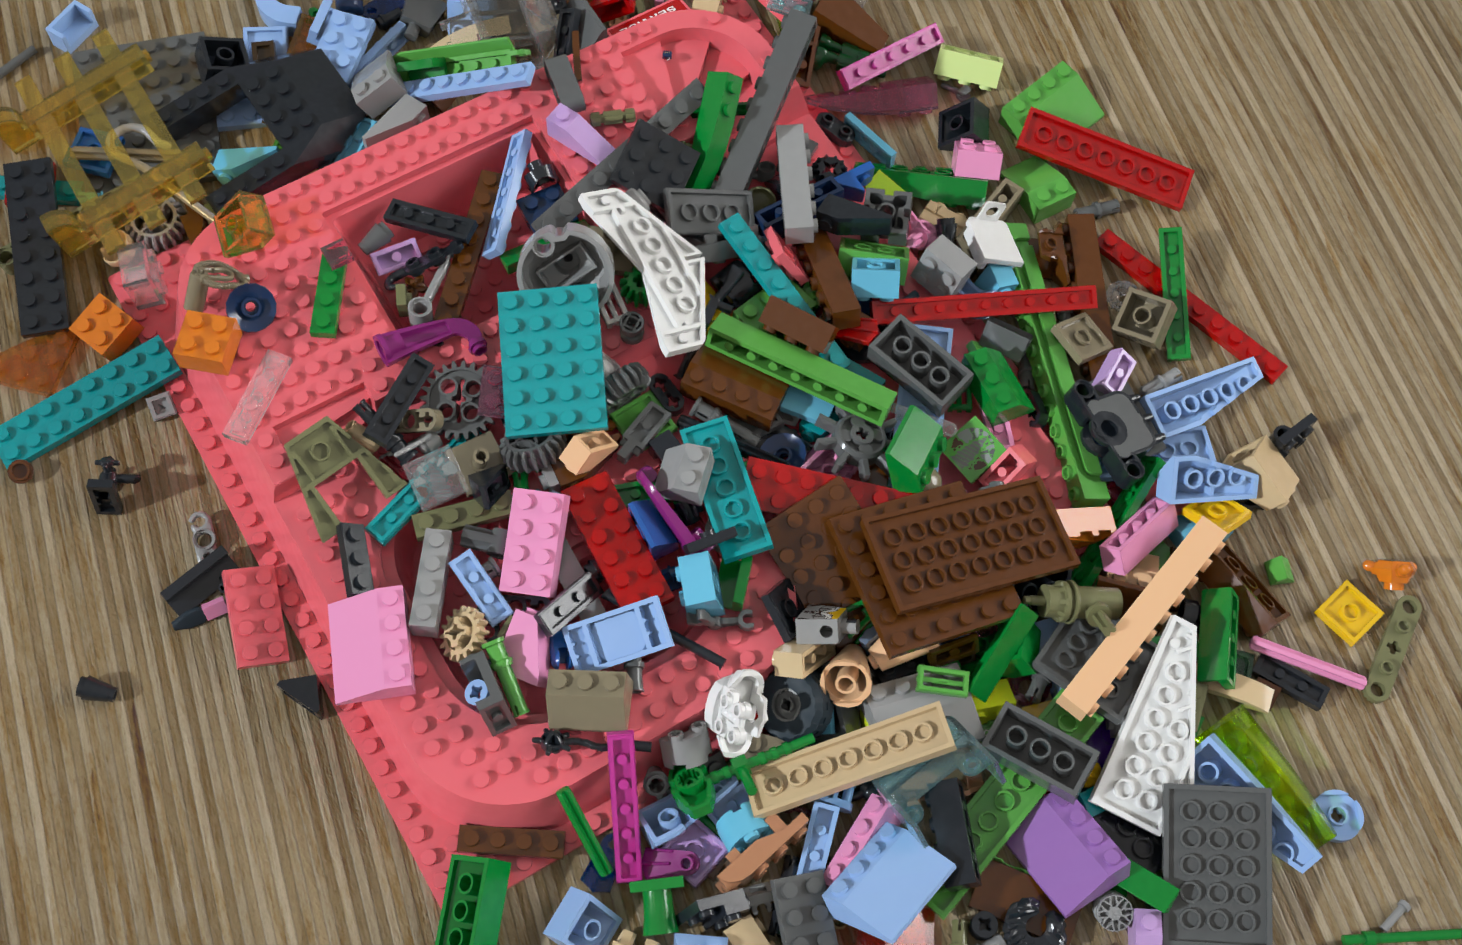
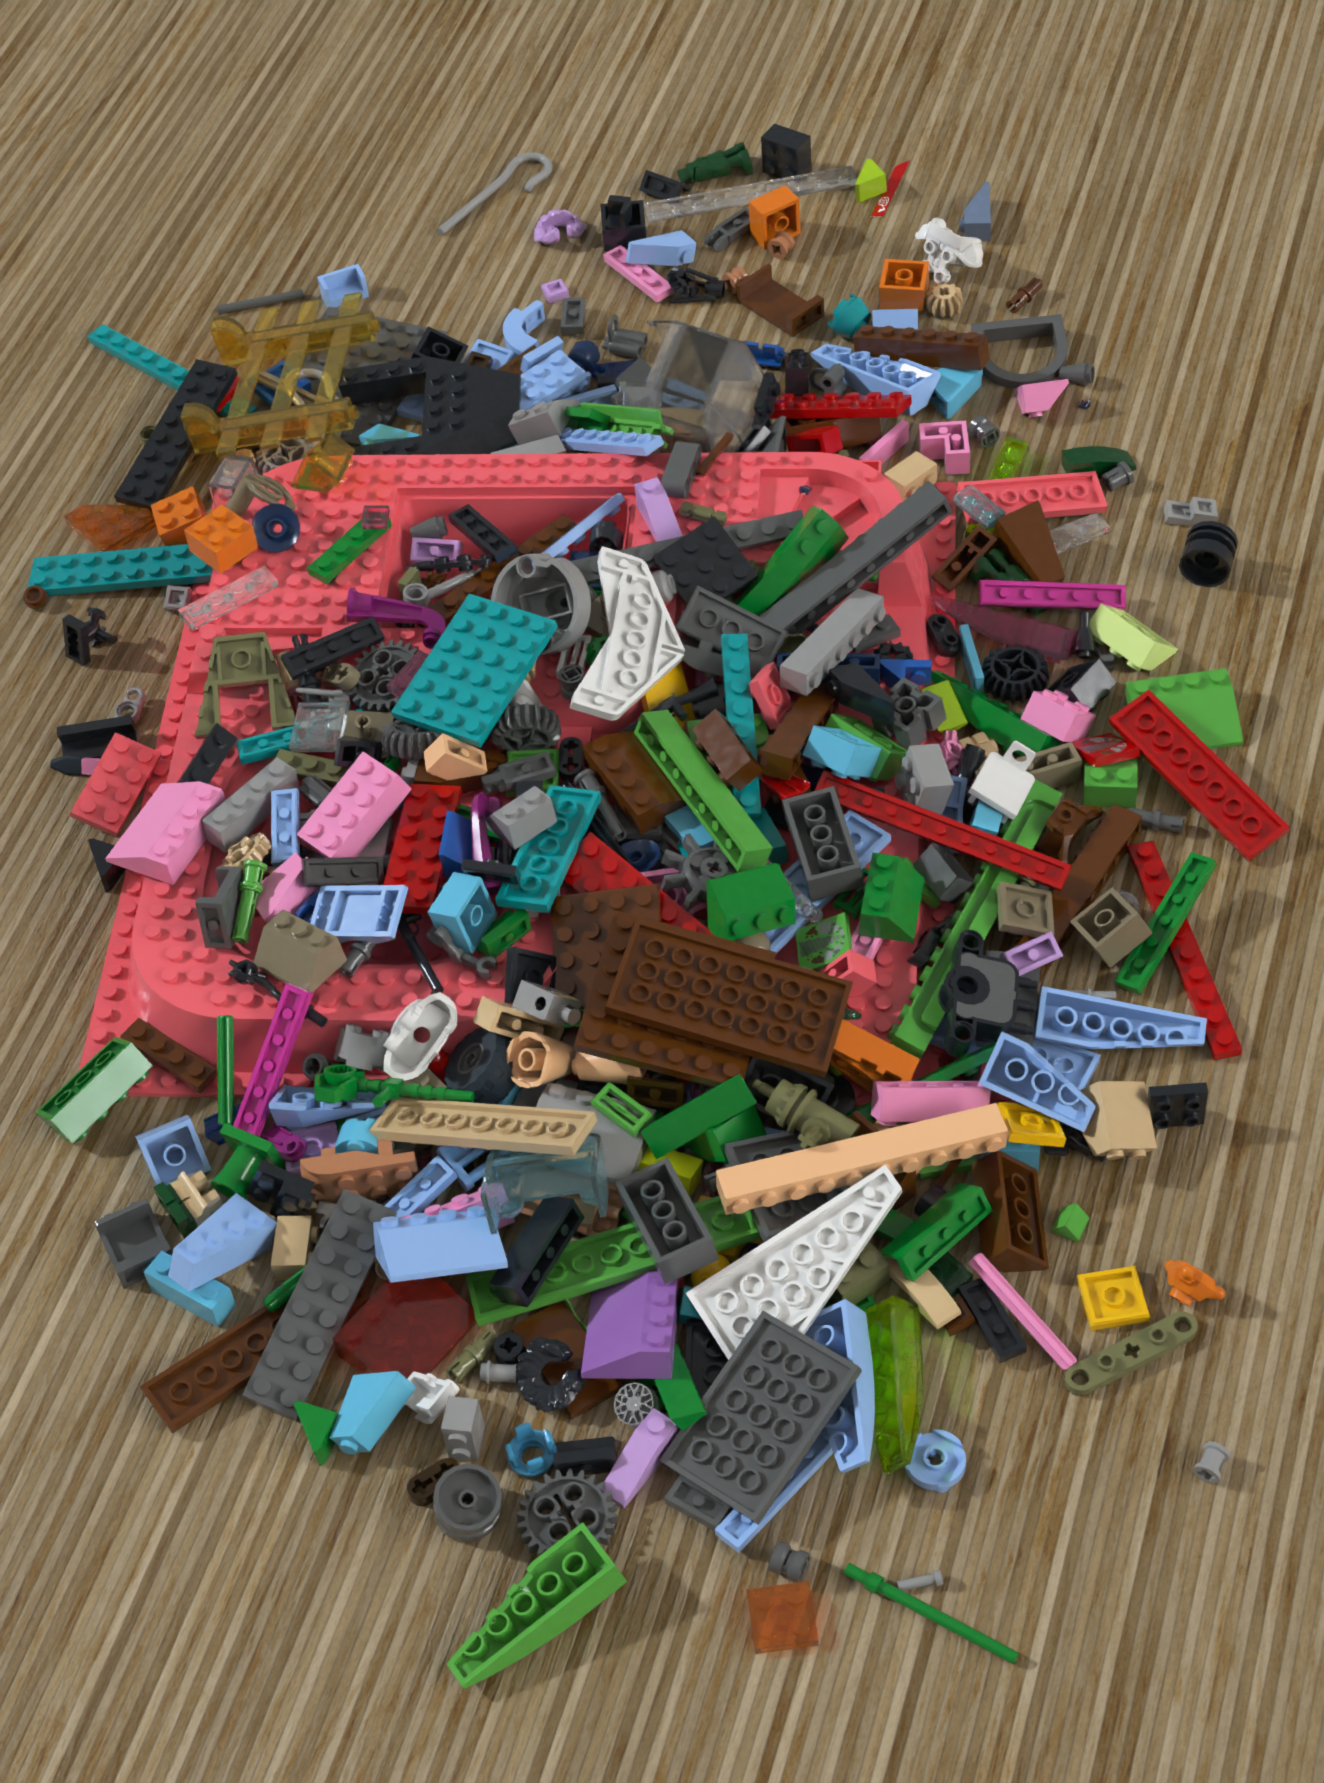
camera: 45 degrees right, 15 degrees down
(909, 127) = (1015, 673): none -> black gear
(943, 85) = (1084, 643): none -> black cone
(1027, 170) = (1105, 750): none -> red tile

